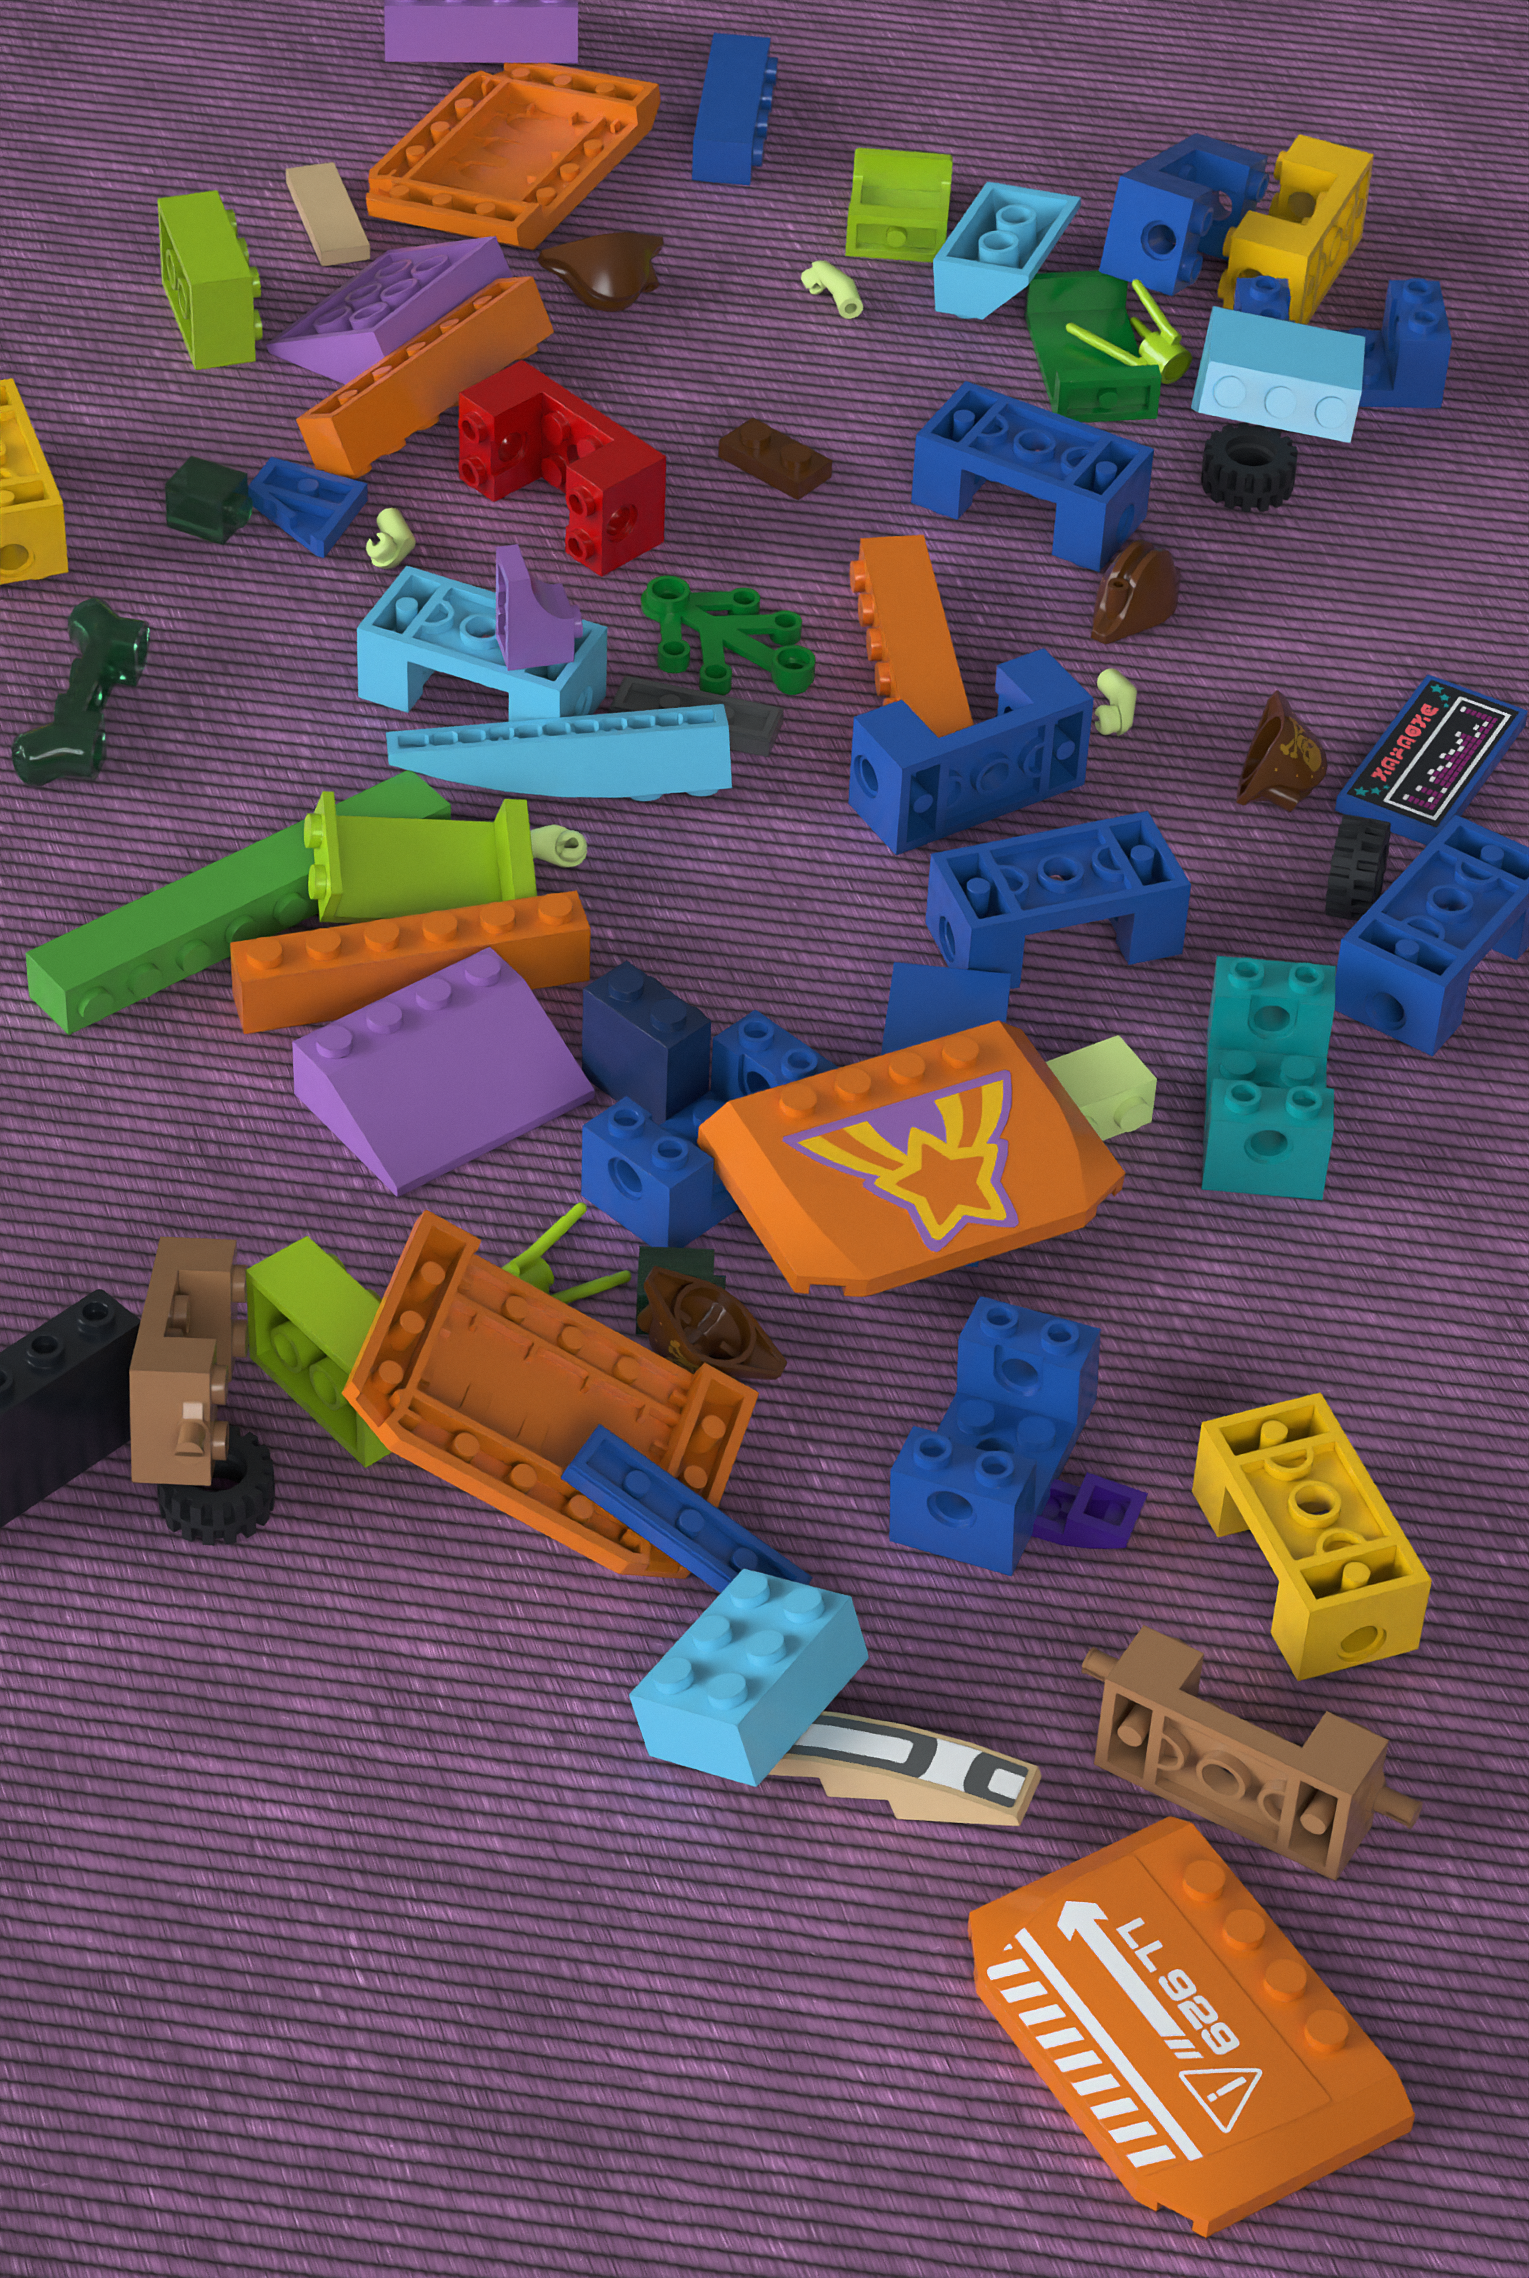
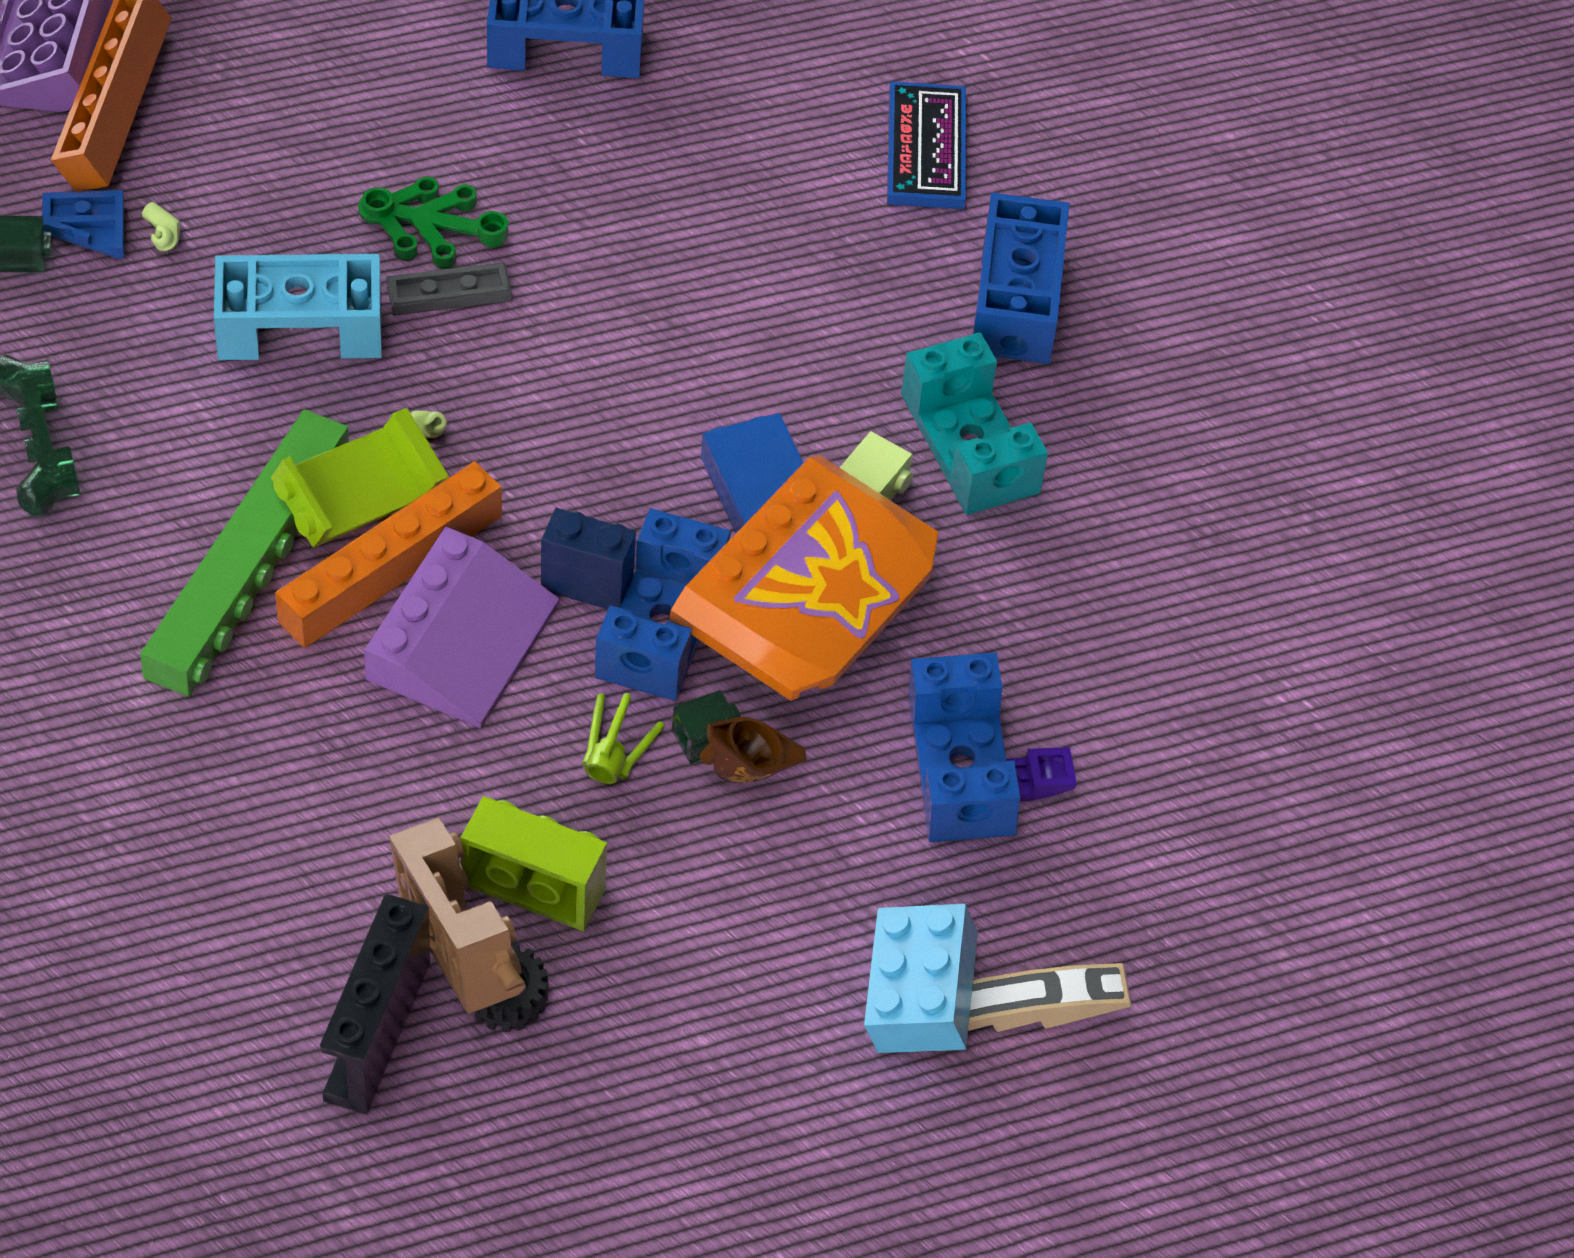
camera: 30 degrees left, 10 degrees up
(509, 1385) = (699, 851): orange slope -> none
(532, 617) = (338, 270): medium lavender arch -> none
(533, 428) = (222, 104): red plate -> none
(579, 755) = (403, 353): medium azure slope -> none
(671, 1514) = (814, 890): blue tile -> none
(775, 458) = (376, 65): reddish brown plate -> none
(909, 631) = (569, 194): orange brick -> none
(931, 787) = (634, 292): blue plate -> none
(1000, 890) = (743, 364): blue plate -> none
(1122, 697) = (713, 169): yellowish green arm -> none
(1135, 592) = (674, 89): reddish brown hat -> none
(1183, 2028) = (1285, 1090): orange slope -> none
(1282, 759) = (839, 182): reddish brown hat -> none
(1287, 1797) = (1229, 917): medium nougat brick -> none
(1344, 1576) = (1225, 756): yellow plate -> none
(1357, 866) = (939, 248): black tyre -> none

